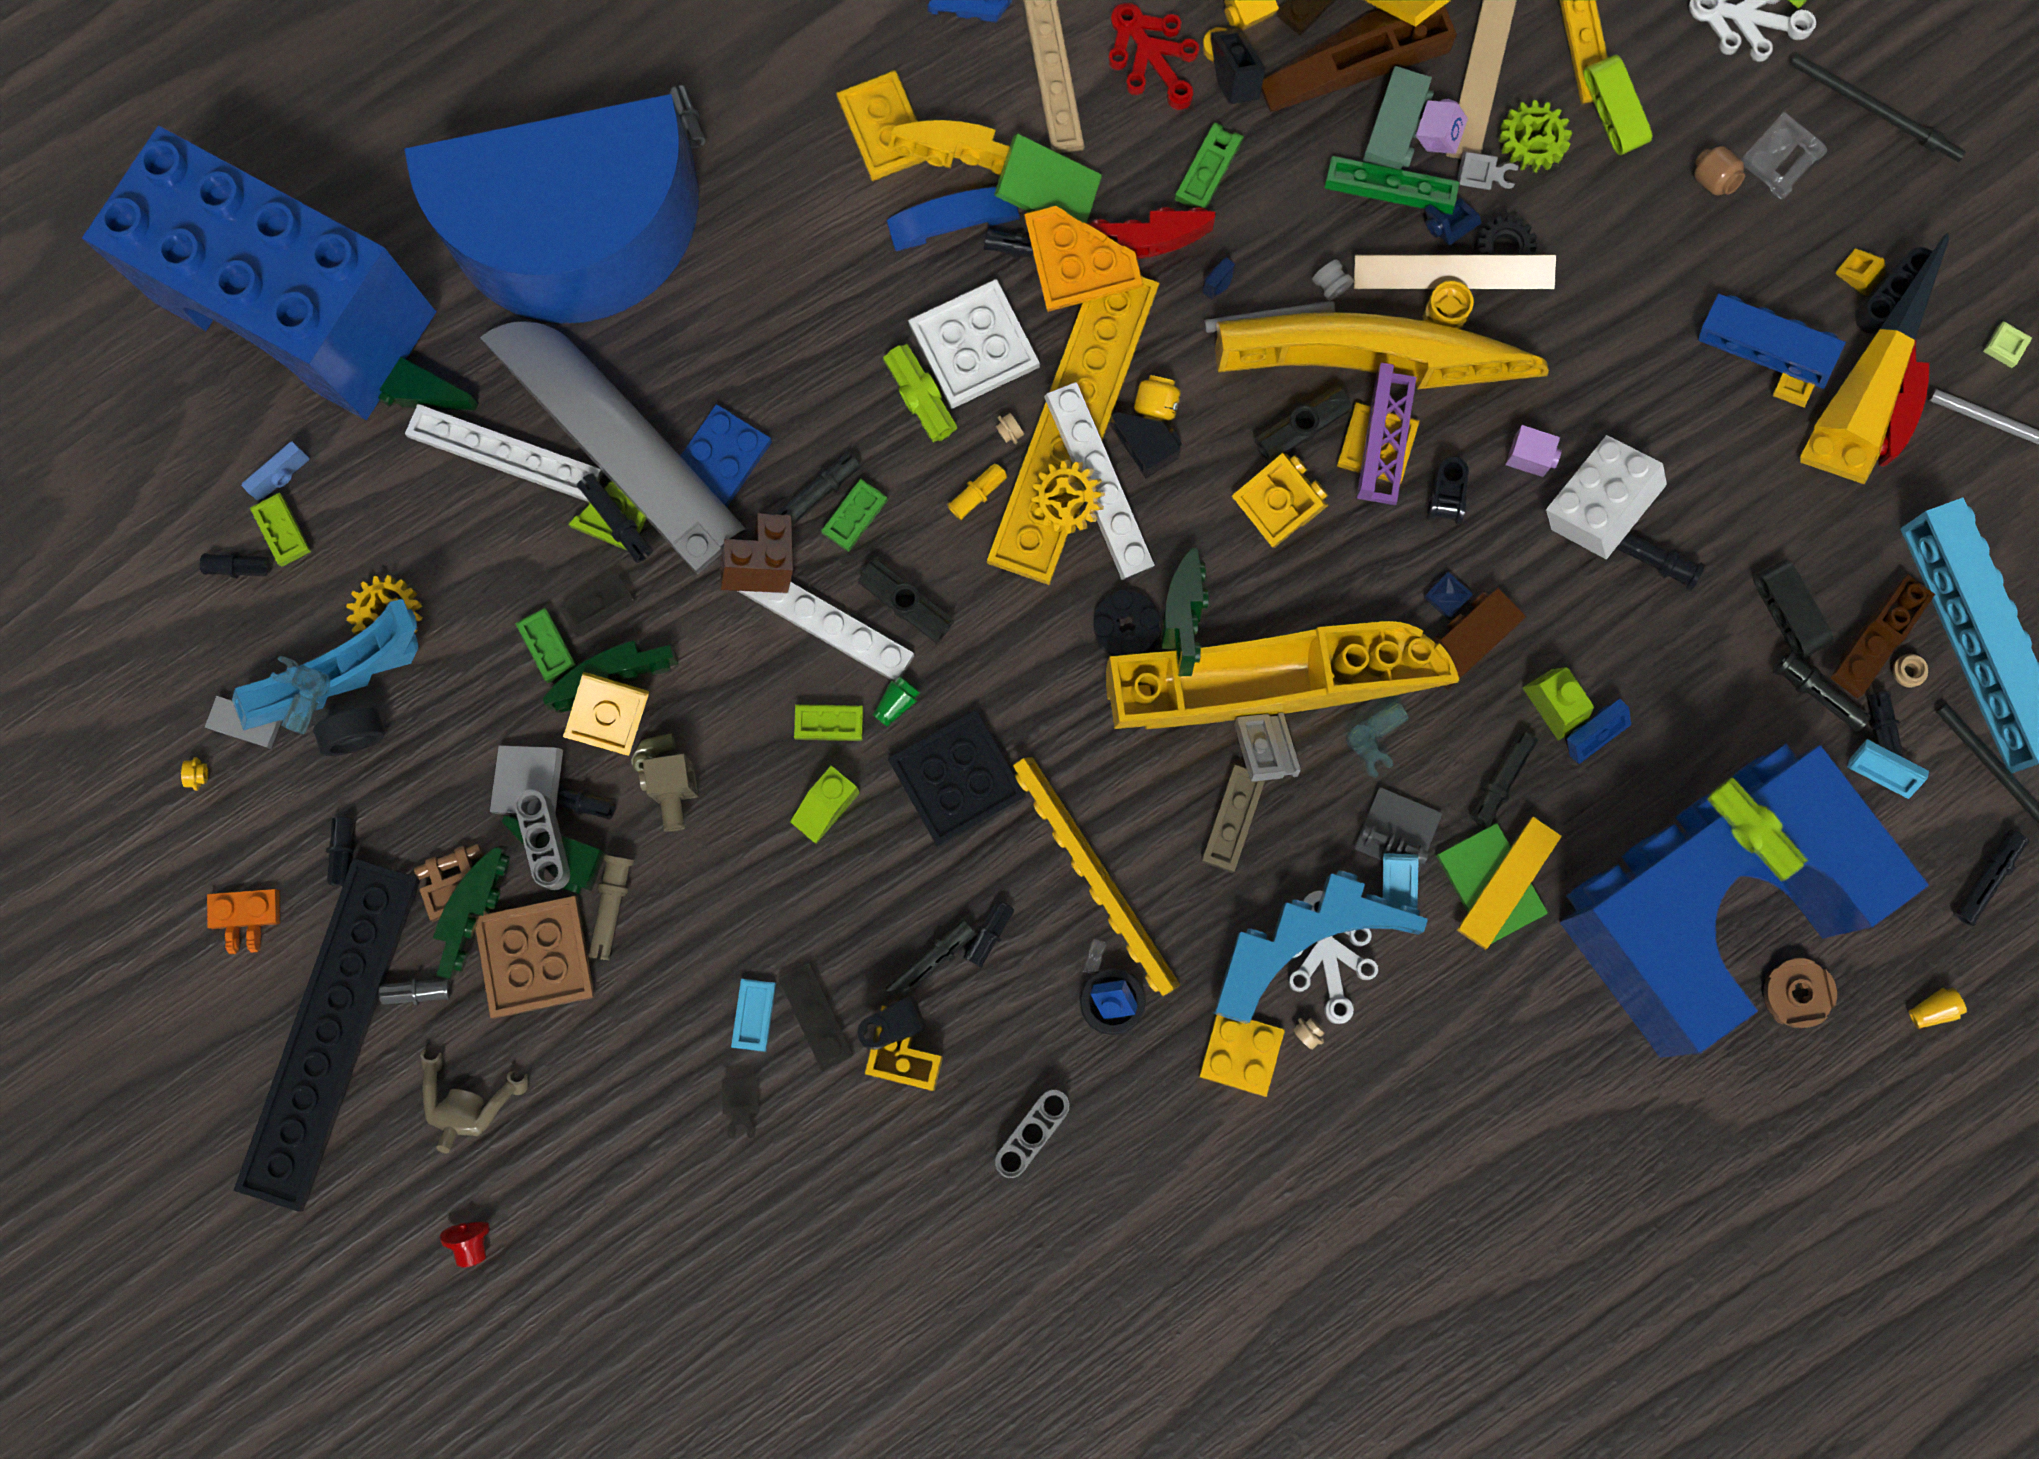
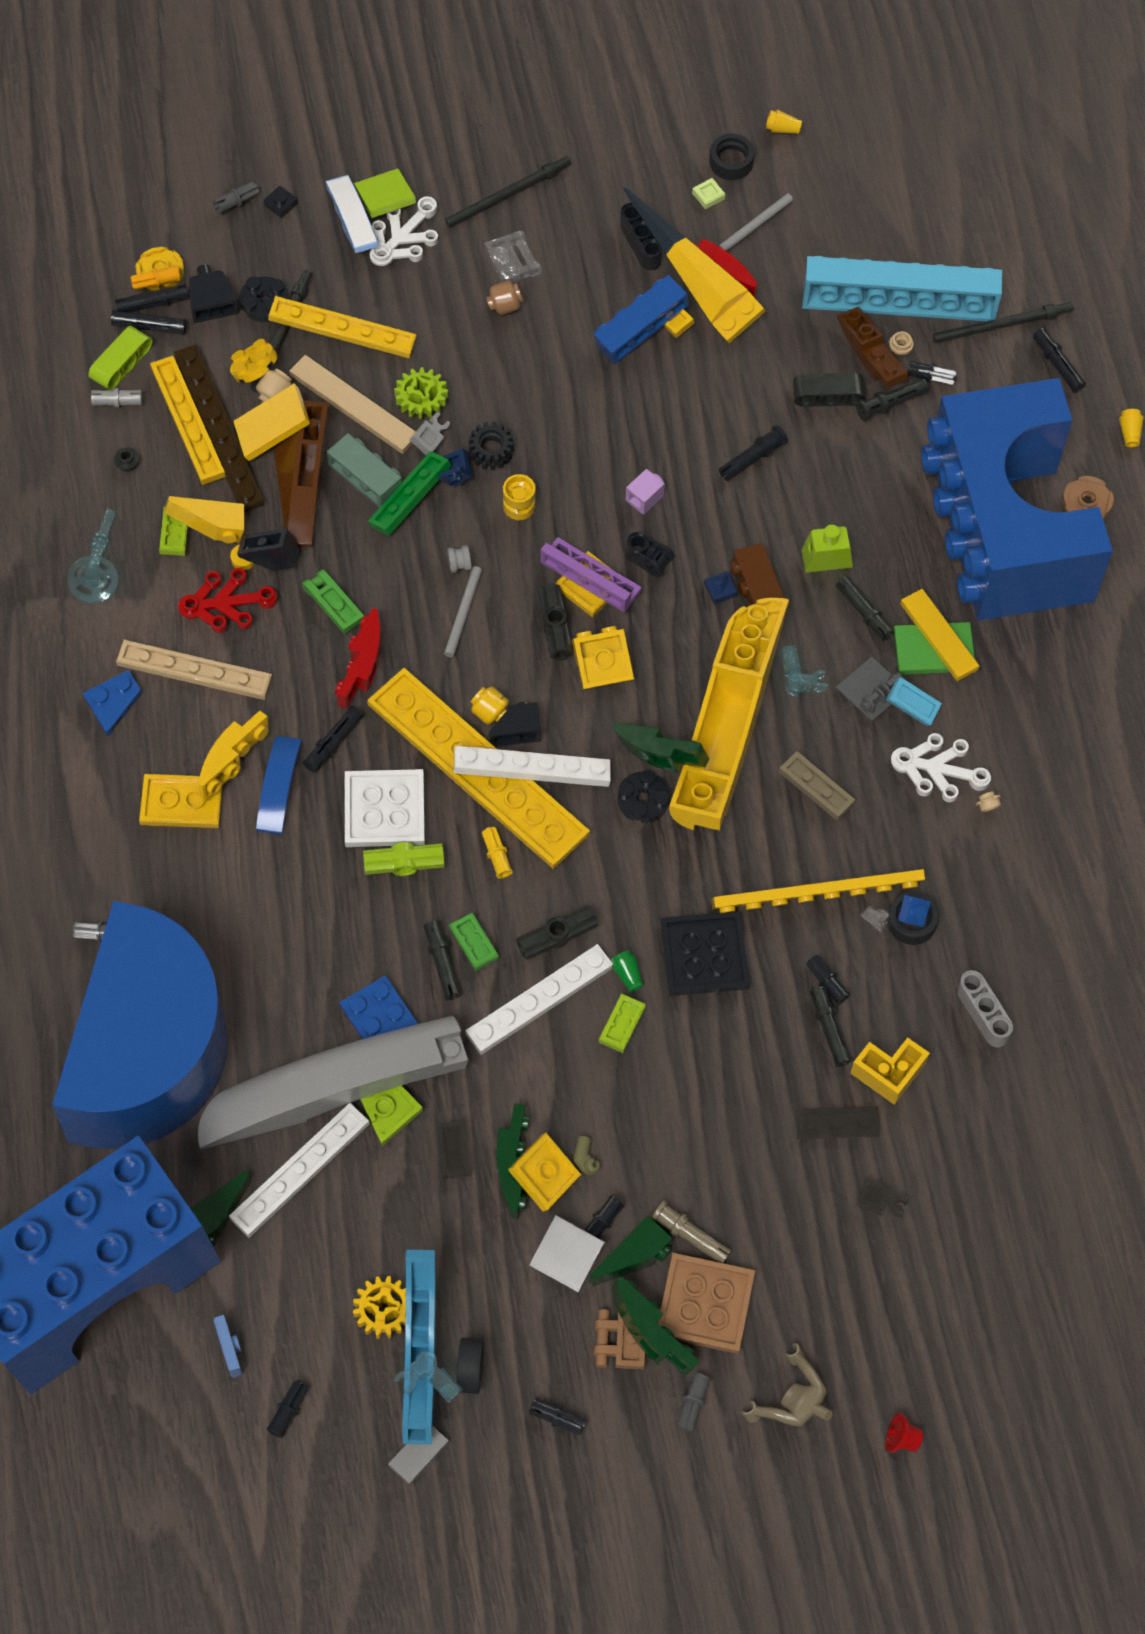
camera: 70 degrees left, 15 degrees down
(194, 773) = (443, 1506): yellow plate -> none
(243, 909) = (569, 1512): orange hinge -> none
(280, 529) = (276, 1362): lime plate -> none
(327, 1035) = (698, 1481): black plate -> none
(530, 828) = (638, 1241): light grey beam -> none
(546, 645) = (467, 1199): bright green plate -> none
(622, 528) = (397, 1103): black pin -> none
(669, 782) = (620, 1147): dark tan brick -> none
(753, 1015) = (816, 1166): medium azure tile -> none
(760, 563) = (480, 1011): reddish brown brick -> none
(824, 804) = (682, 1049): lime slope -> none
(898, 1021) = (872, 1054): black piece -> none
(1009, 428) = (460, 811): tan plate -> none
(1042, 179) = (293, 706): bright green tile -> none
(1068, 509) = (547, 791): yellow gear -> none
(1078, 260) = (362, 709): light orange plate -> none
(1219, 278) = (420, 628): dark blue tile -> none
(1242, 1054) = (984, 852): yellow plate -> none
(1267, 747) = (776, 741): light grey plate -> none
(1340, 910) = (925, 805): dark azure arch -> none
(1362, 341) = (519, 555): yellow slope -> none
(1441, 126) = (385, 443): lavender brick -> none
(1472, 270) = (491, 484): tile -> none
(1599, 731) = (856, 530): blue plate -> none
(1606, 496) = (701, 460): white brick -> none
(1617, 104) = (427, 334): lime beam -> none
(1757, 829) = (982, 452): lime piece -> none
(1862, 271) = (616, 250): yellow slope -> none
(1888, 769) = (964, 381): medium azure tile -> none

